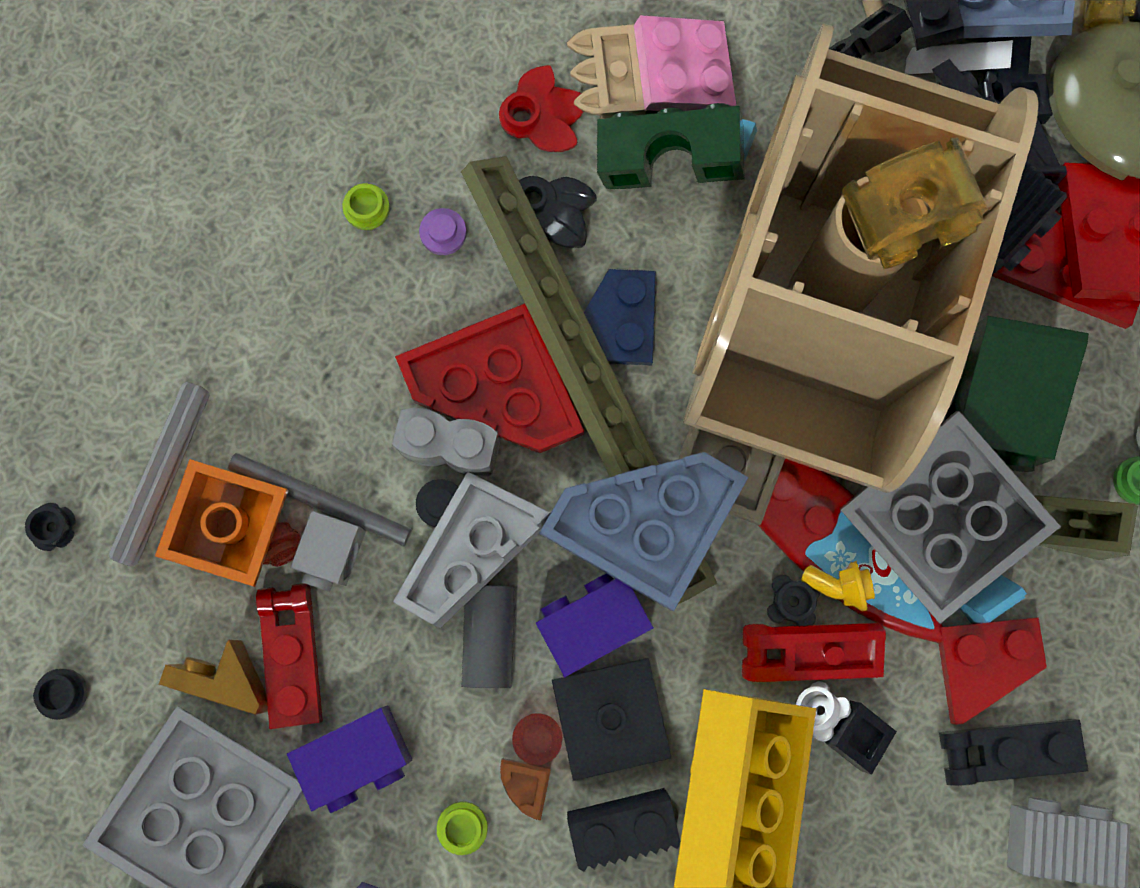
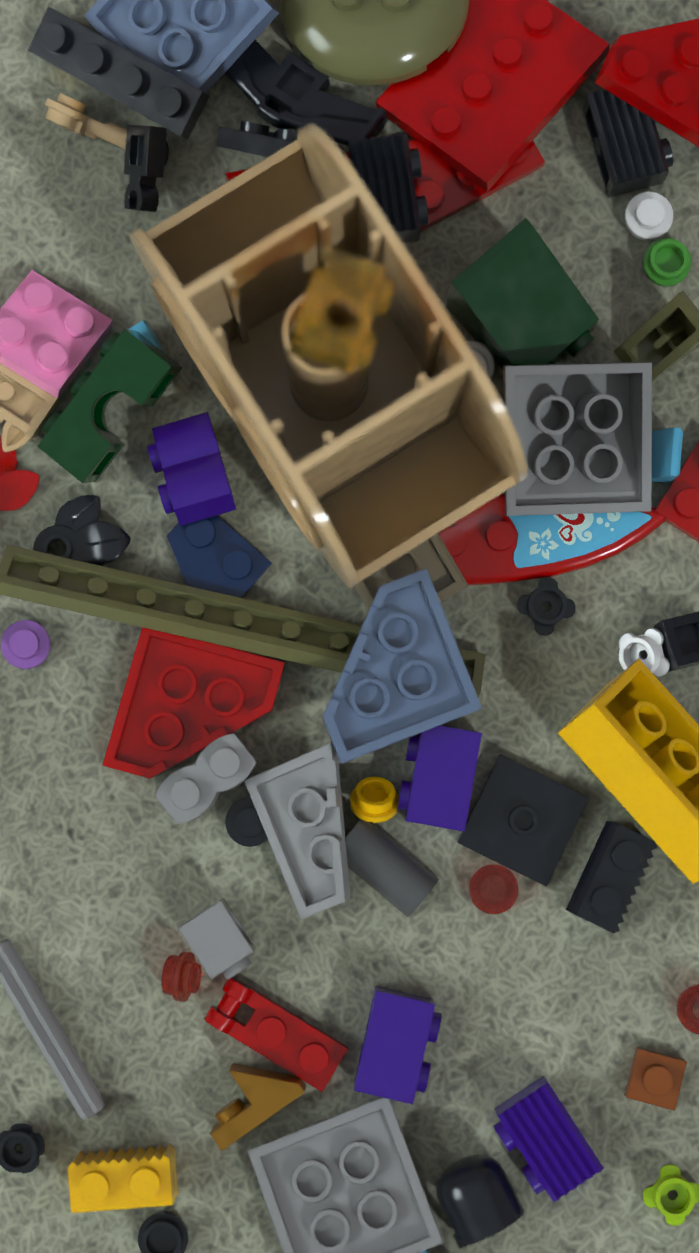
camera: 50 degrees left, 5 degrees up
(81, 624) = (123, 1179): none -> yellow brick
(221, 523) = (133, 1005): orange slope -> none
(322, 500) = (168, 915): flat silver bar -> none
(462, 828) = (514, 999): lime plate -> none
(525, 785) = (521, 925): dark orange tile -> none
(533, 586) = (374, 800): none -> yellow plate
(673, 246) = (192, 469): none -> dark purple brick
(814, 652) = (596, 624): red plate -> none
(853, 584) = (570, 554): yellow plate -> none
(964, 56) = (223, 105): white sticker -> none

